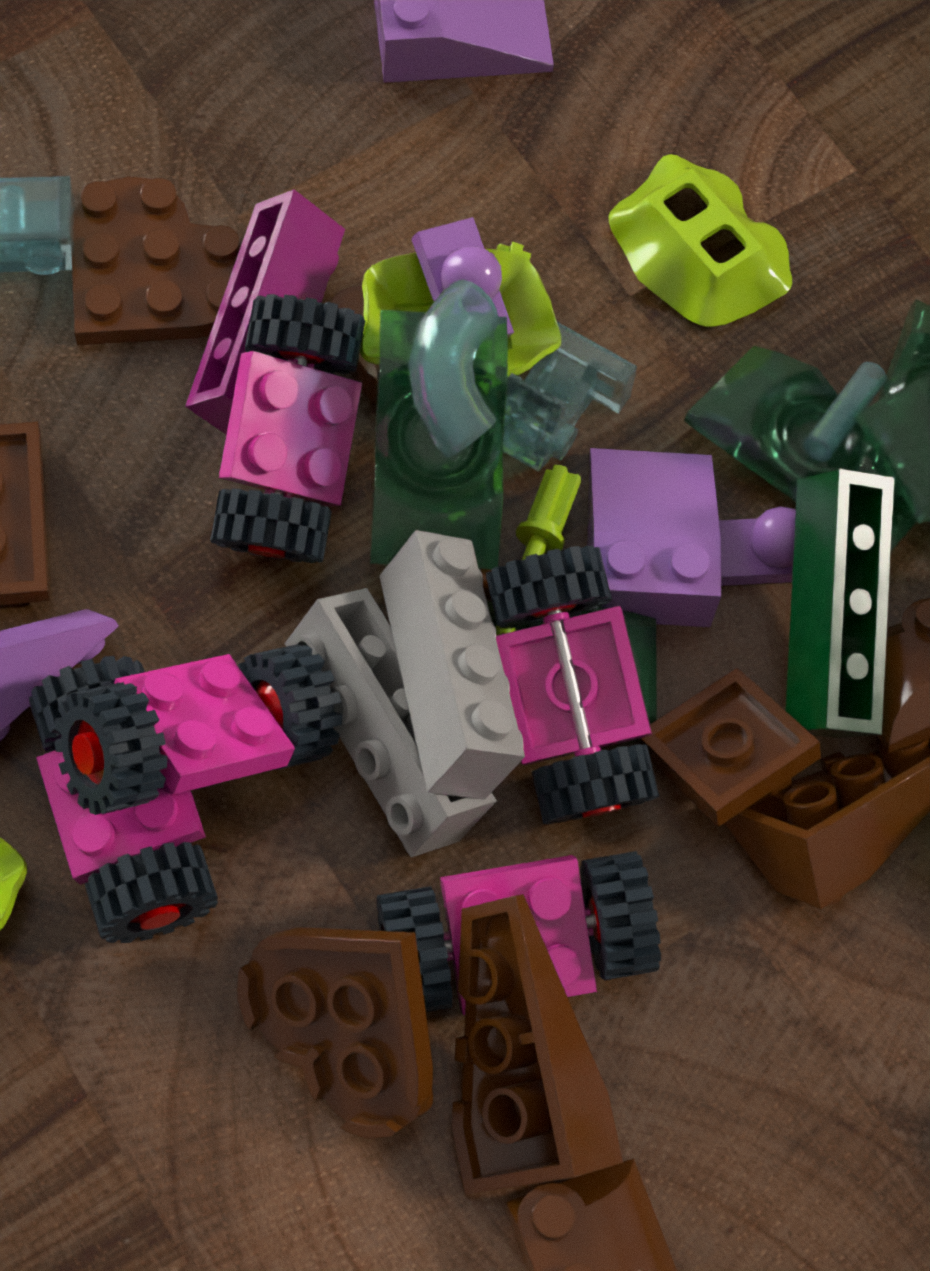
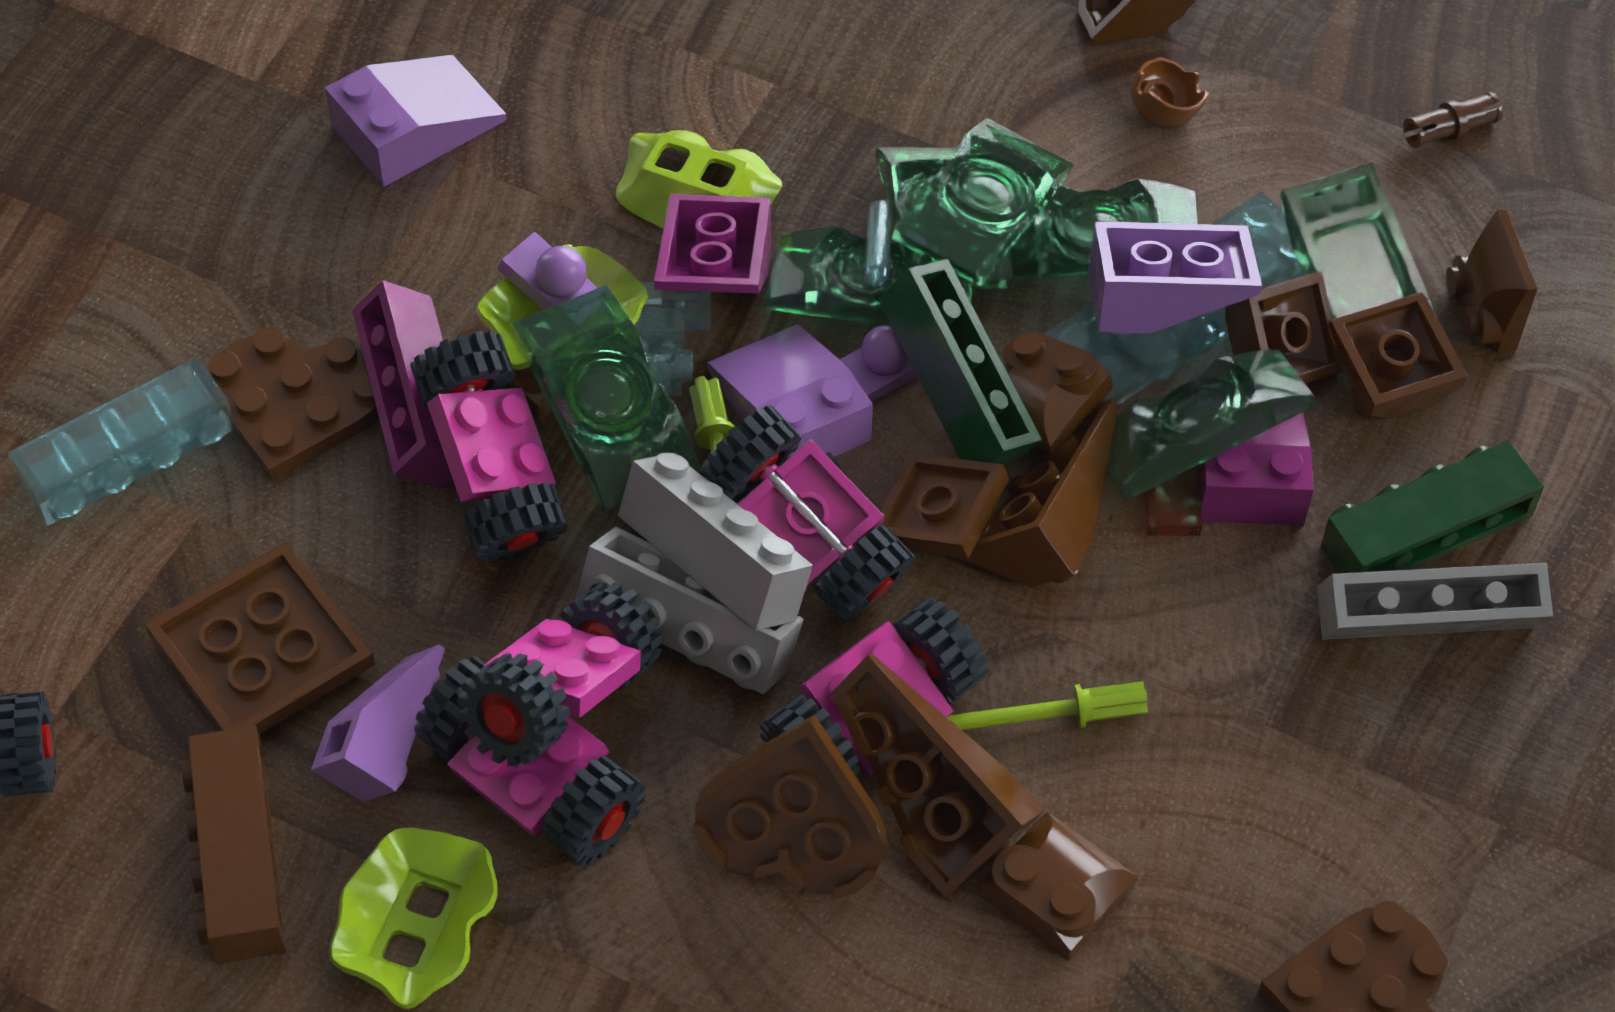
camera: 25 degrees left, 10 degrees down
(444, 363) = (589, 334): clear light blue cylinder -> none
(663, 328) = (715, 244): none -> magenta slope
(751, 1063) = (1087, 705): none -> lime piece

